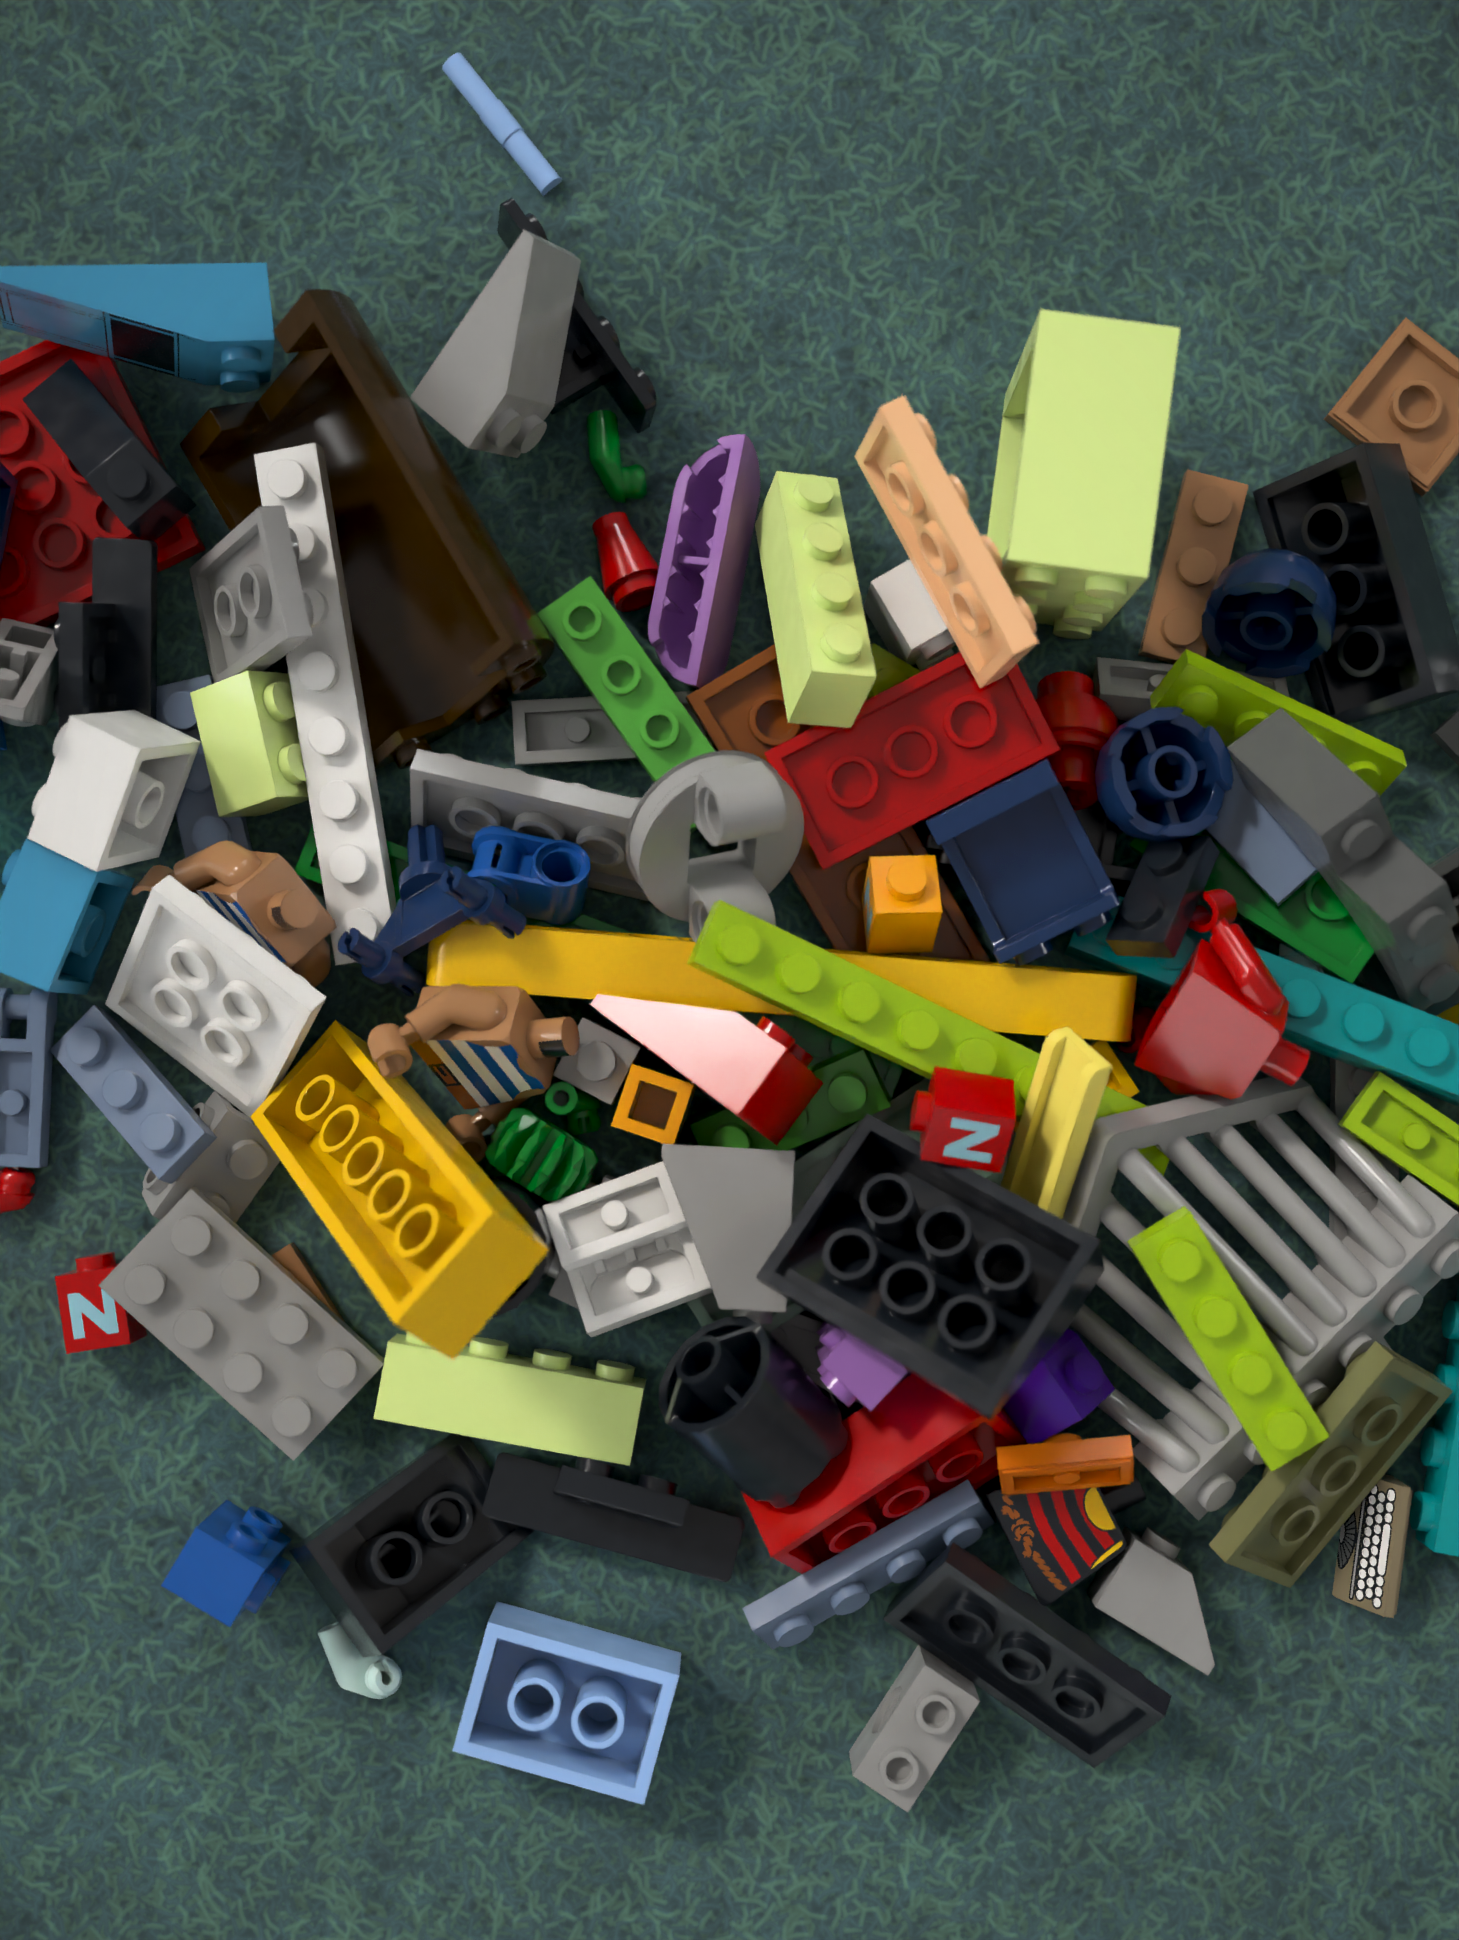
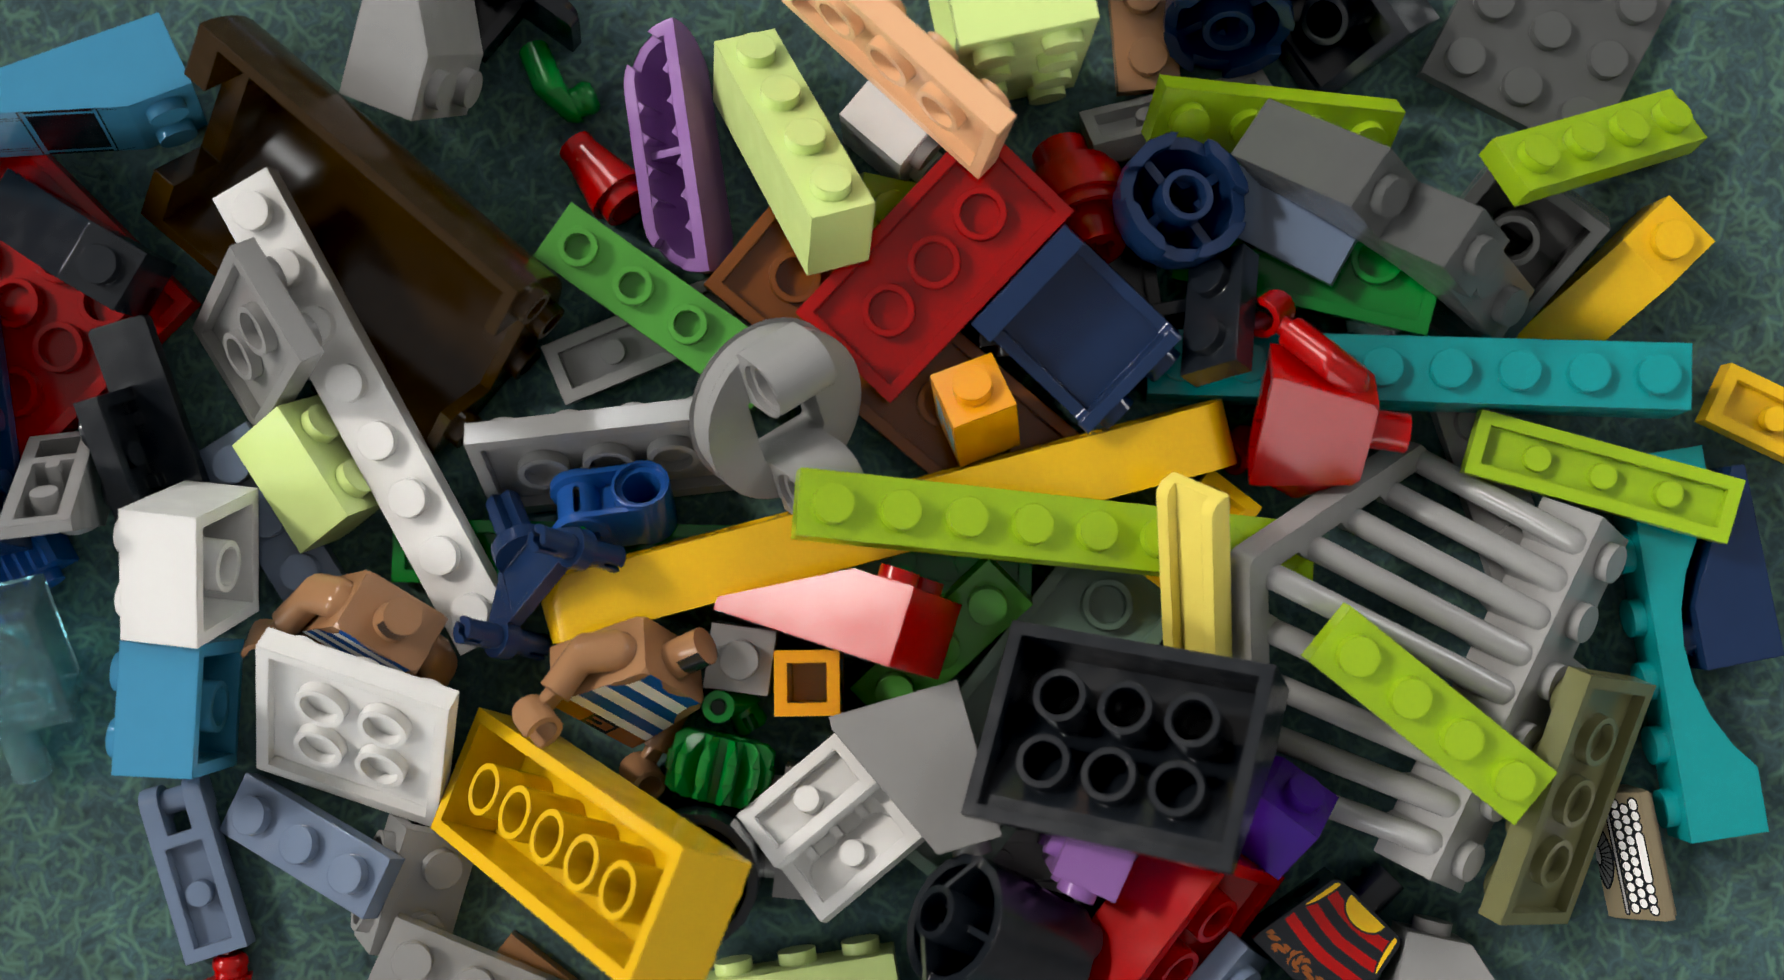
camera: 20 degrees left, 0 degrees up
(965, 1119) = (1107, 593): red brick -> none
(1065, 1464) = (1317, 884): orange plate -> none

